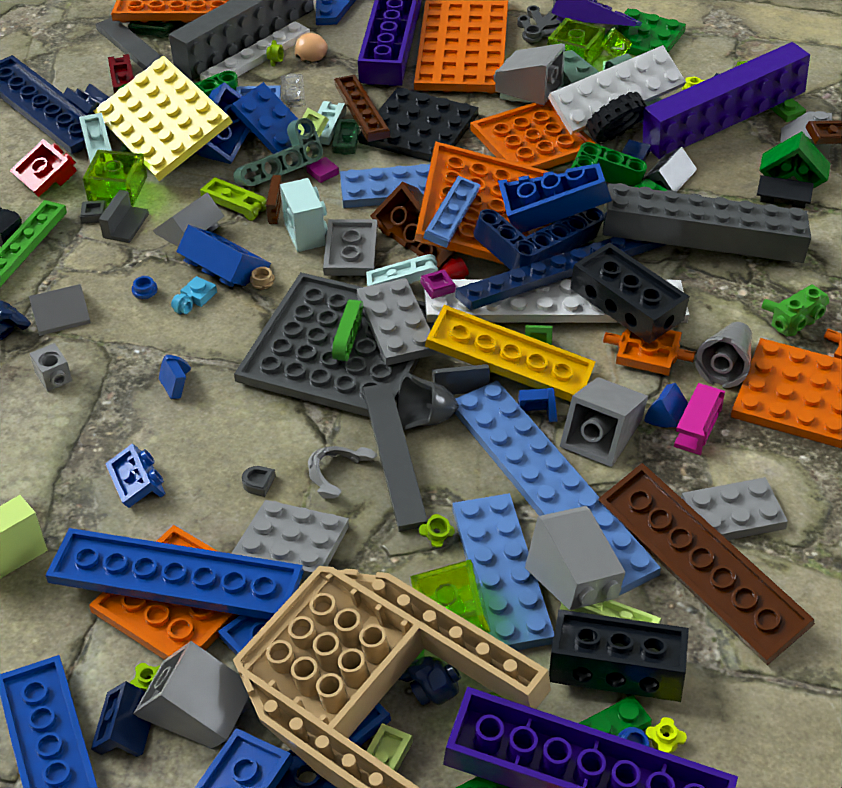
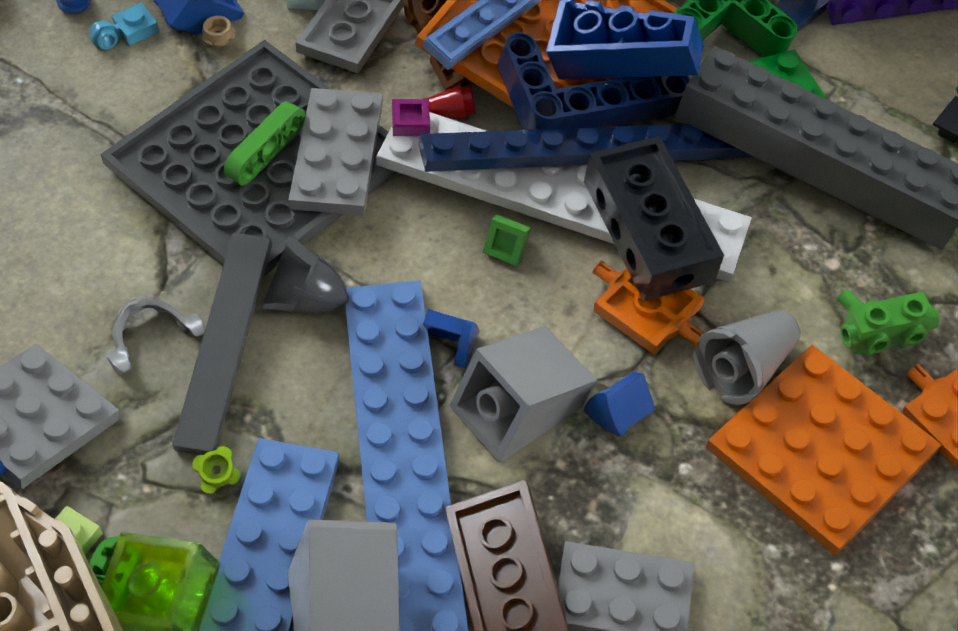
camera: 20 degrees right, 10 degrees up
(173, 375) = (35, 121): blue tile -> none
(258, 480) = (48, 311): dark grey tile -> none
(410, 269) = (392, 82): light aqua plate -> none
(462, 379) = (374, 260): dark grey panel -> none
(509, 353) = (450, 250): yellow plate -> none
(672, 169) = (836, 49): panel -> none
(699, 418) = (653, 436): dark pink window -> none

